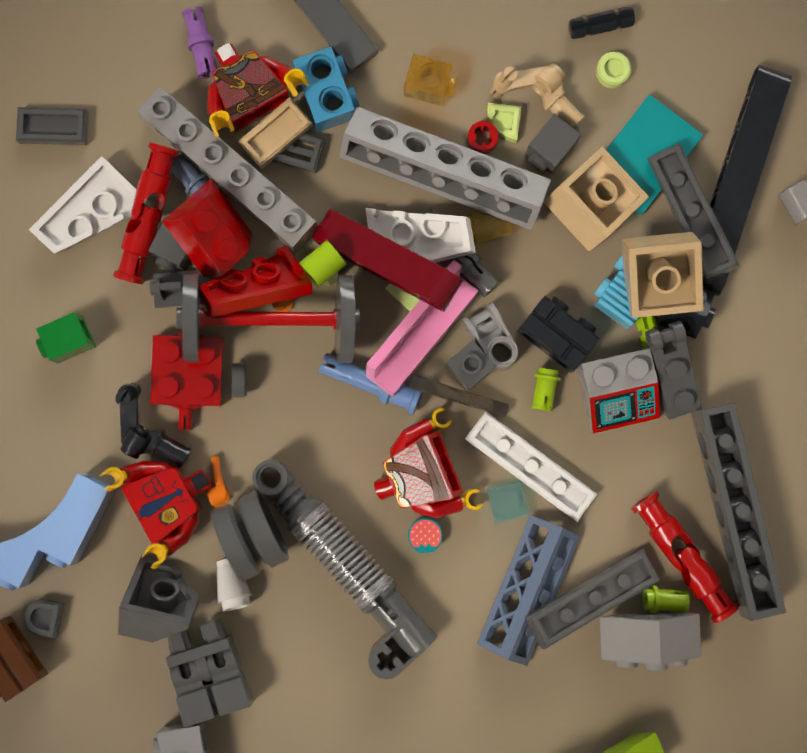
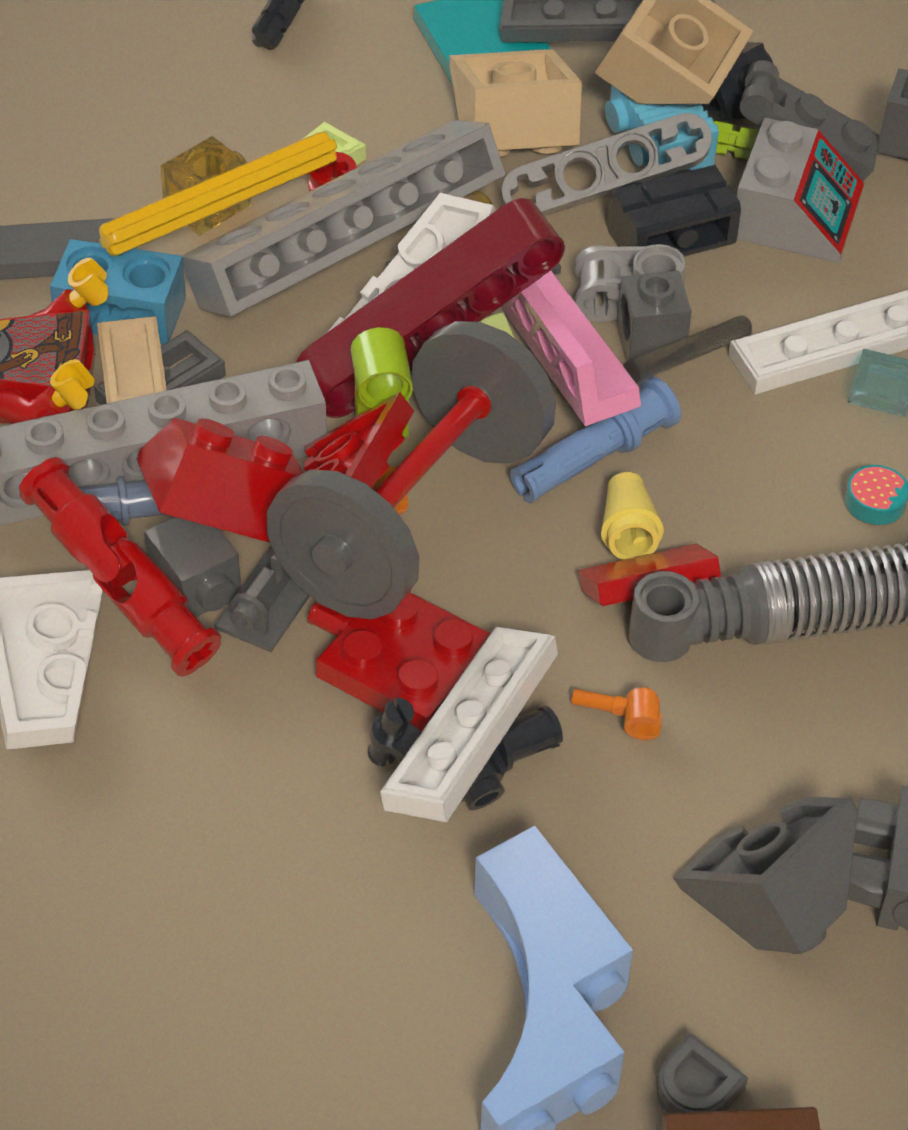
camera: 60 degrees left, 35 degrees down
(64, 338) = (226, 782): green brick -> none
(149, 428) = (469, 724): none -> white tile
(162, 502) = (609, 783): red torso -> none
(231, 590) = (810, 763): white cone -> none
(239, 380) = (473, 592): dark grey tile -> none
(249, 535) = (745, 668): dark grey wheel -> none
(299, 455) = (617, 580): none -> red tile
(331, 426) = (630, 518): none -> light yellow cone
(410, 98) = (216, 194): none -> yellow axle
(423, 473) = (779, 433): torso -> none
(545, 389) = (742, 267): lime pin -> none
(546, 83) = (316, 85): tan pin -> none
(552, 144) = (401, 105): dark grey brick -> none
(568, 277) = (603, 158): none -> light grey beam
(613, 70) = (351, 28): yellowish green tile -> none

